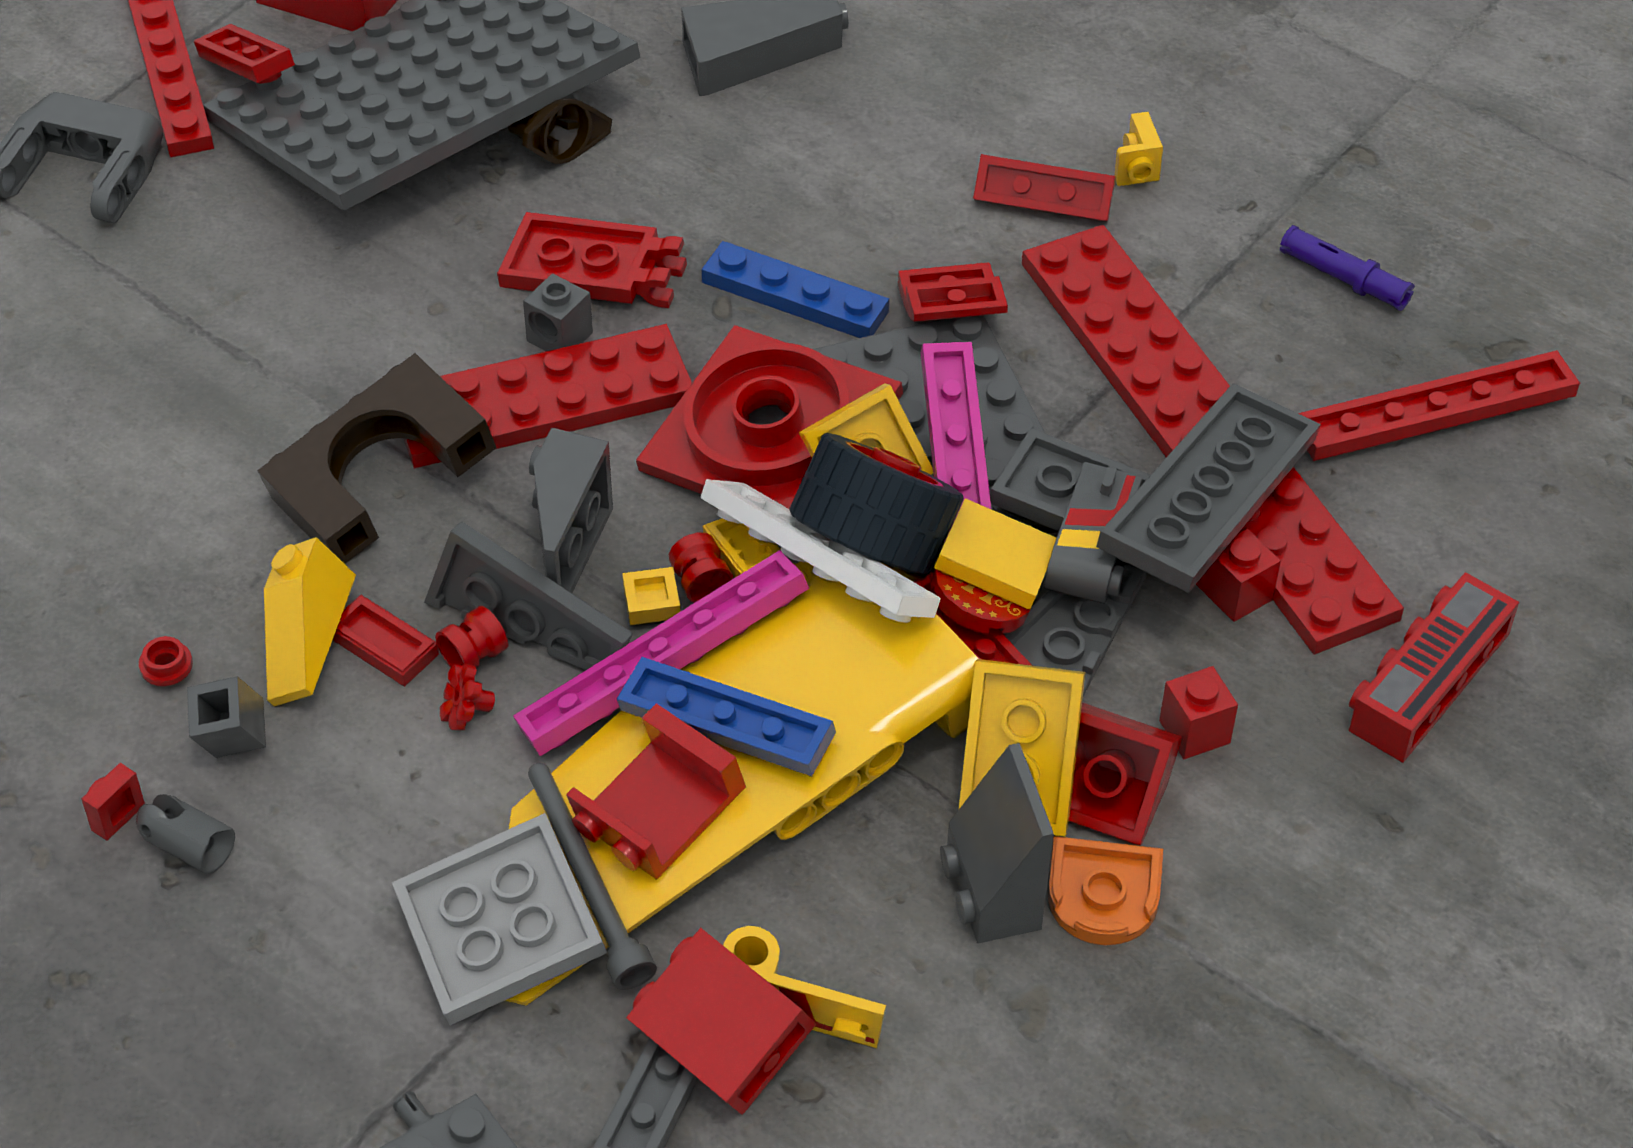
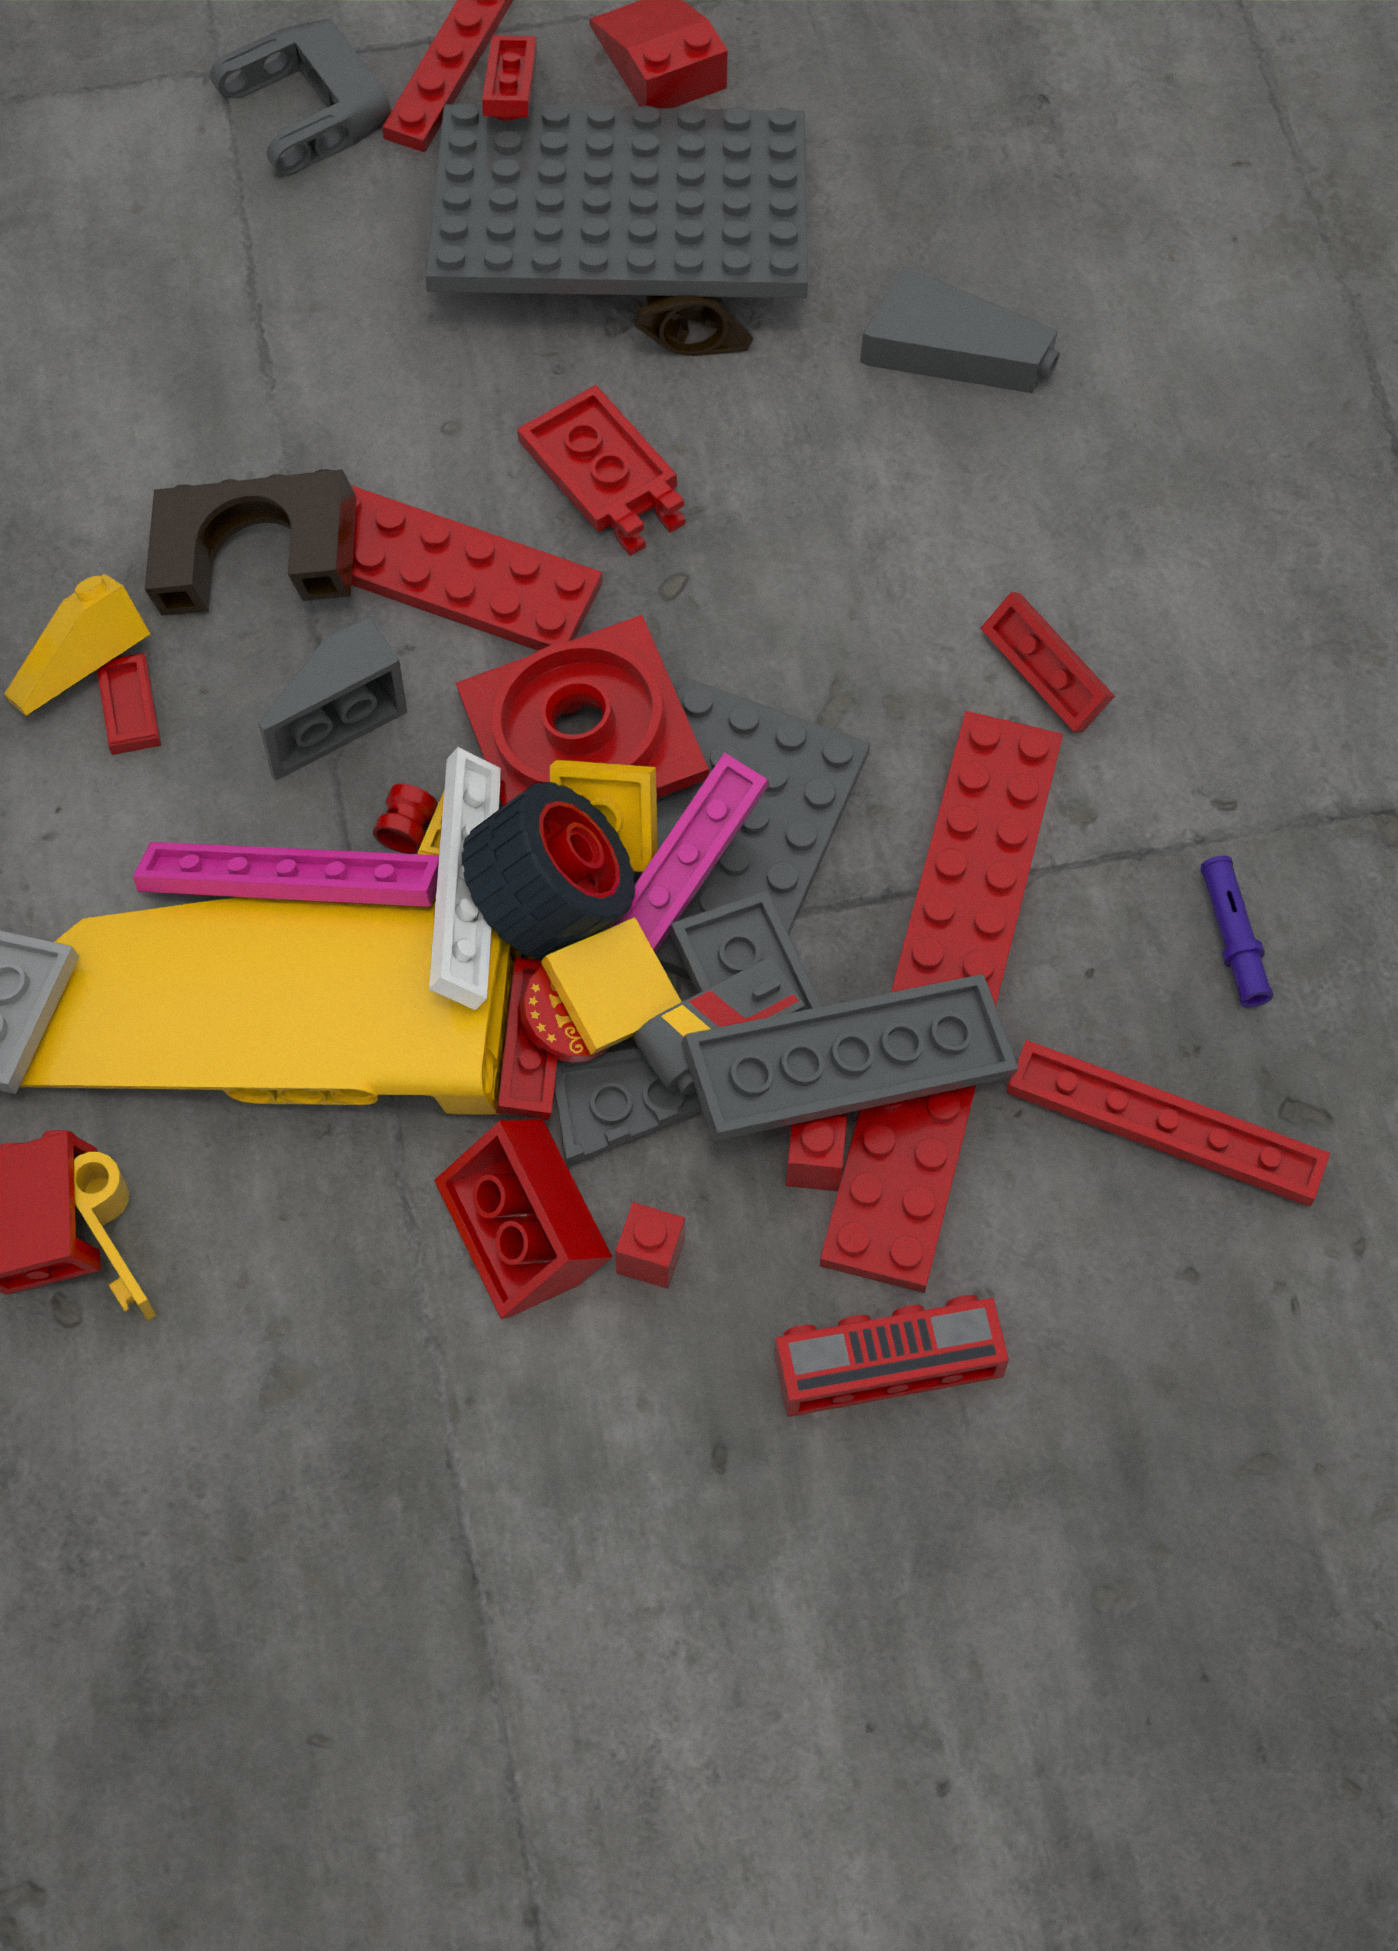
camera: 40 degrees right, 15 degrees up
(464, 697) = (132, 800): red plant -> none
(473, 640) = (179, 754): red wheel -> none
(523, 600) = (227, 722): dark grey wing -> none
(557, 314) = (518, 504): dark grey brick -> none
(628, 961) = (27, 1110): dark grey piece -> none
(650, 595) = (347, 814): yellow plate -> none
(661, 796) = (156, 999): red panel -> none
(730, 715) = (260, 970): blue plate -> none
(795, 290) = (743, 613): blue plate -> none
(951, 292) = (857, 710): red slope -> none
(1001, 852) = (357, 1248): dark grey slope -> none
(1029, 708) = (461, 1168): yellow plate -> none
(1104, 889) = (435, 1332): orange tile -> none
(1141, 152) = (1168, 693): yellow bracket -> none

